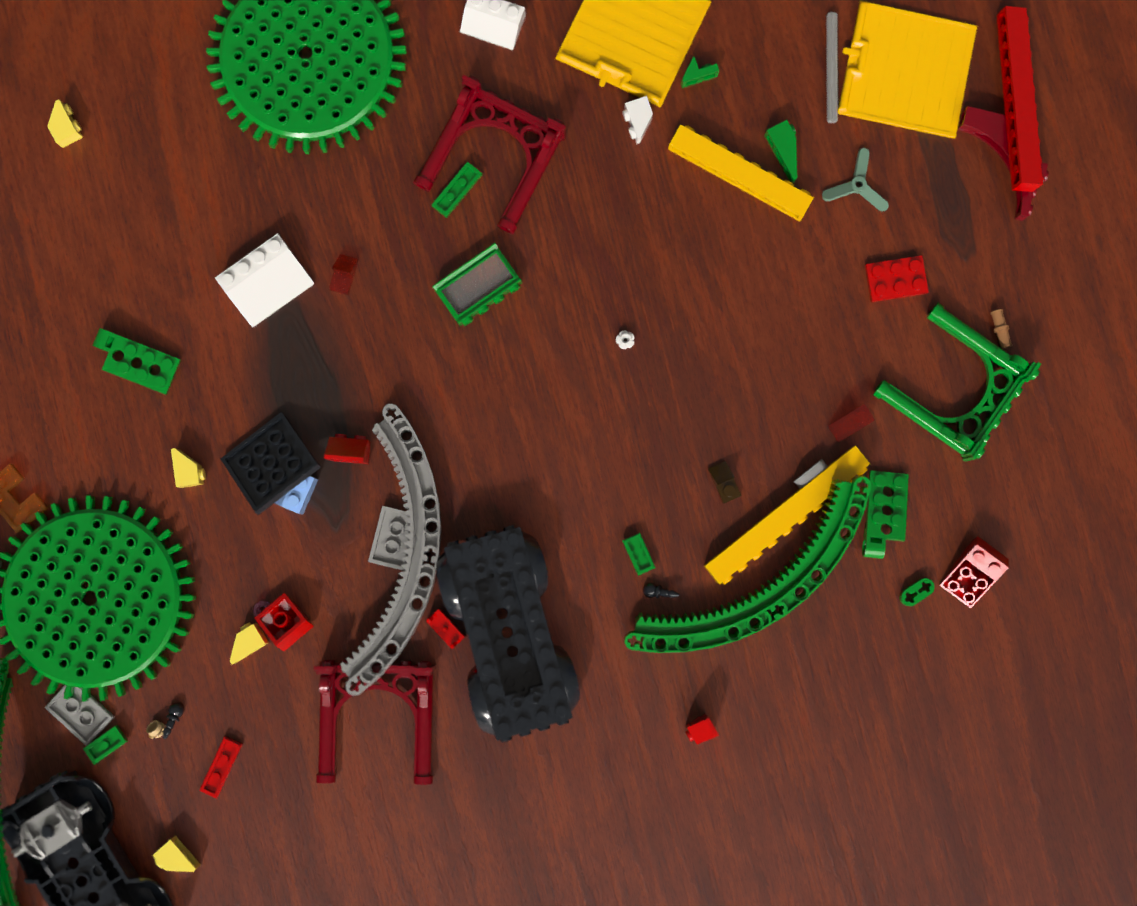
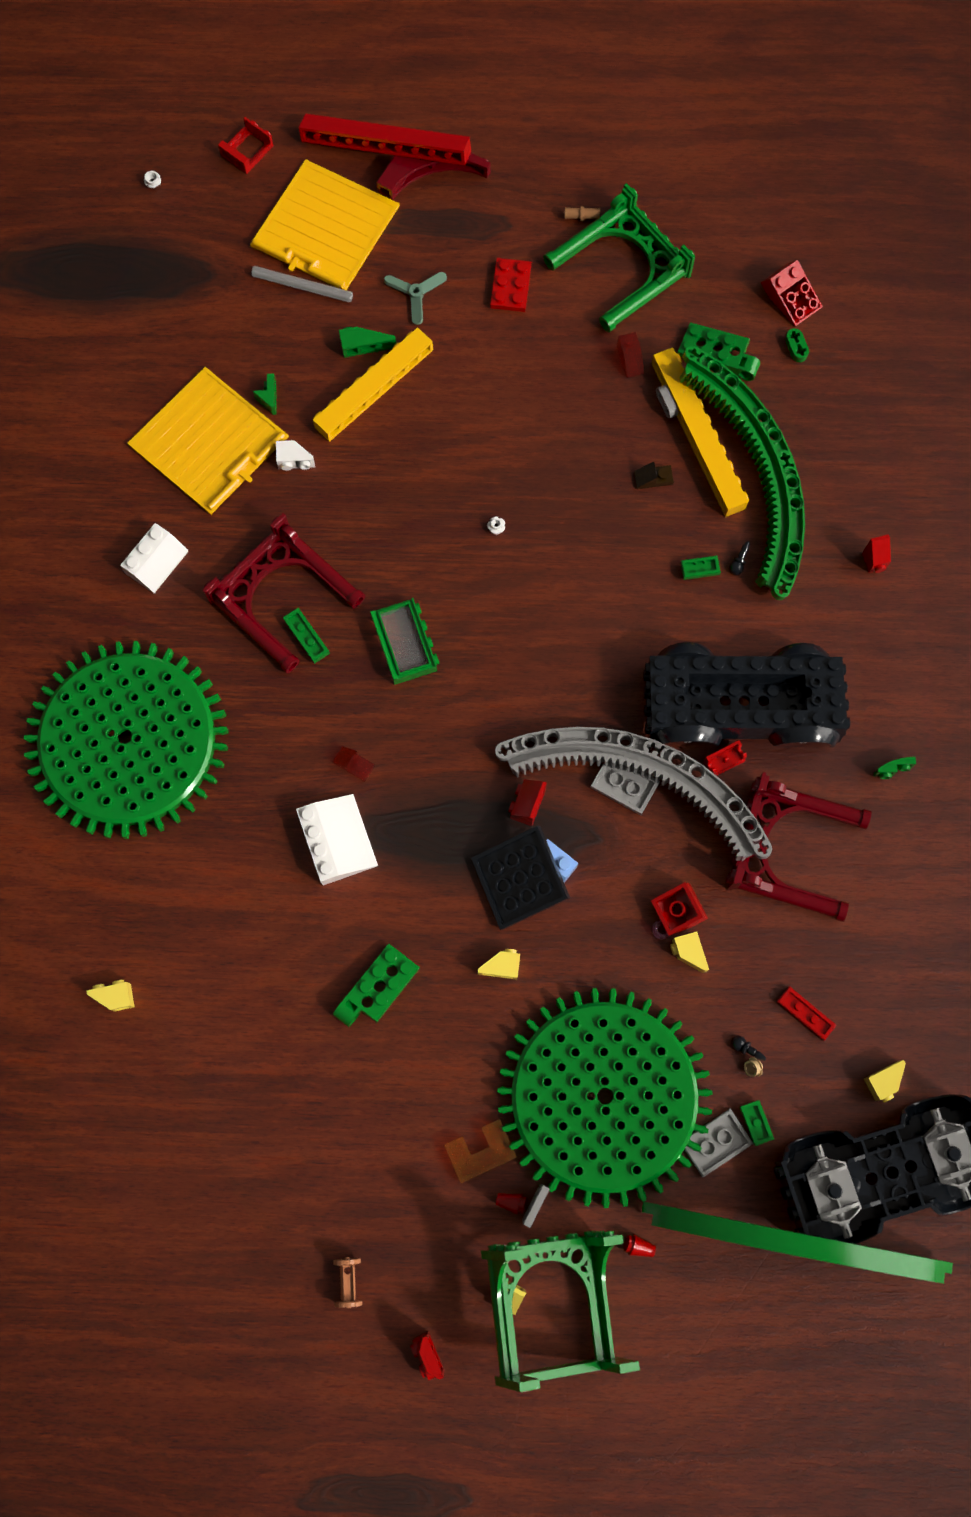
camera: 75 degrees left, 10 degrees down
(480, 792) = (890, 768): none -> green slope

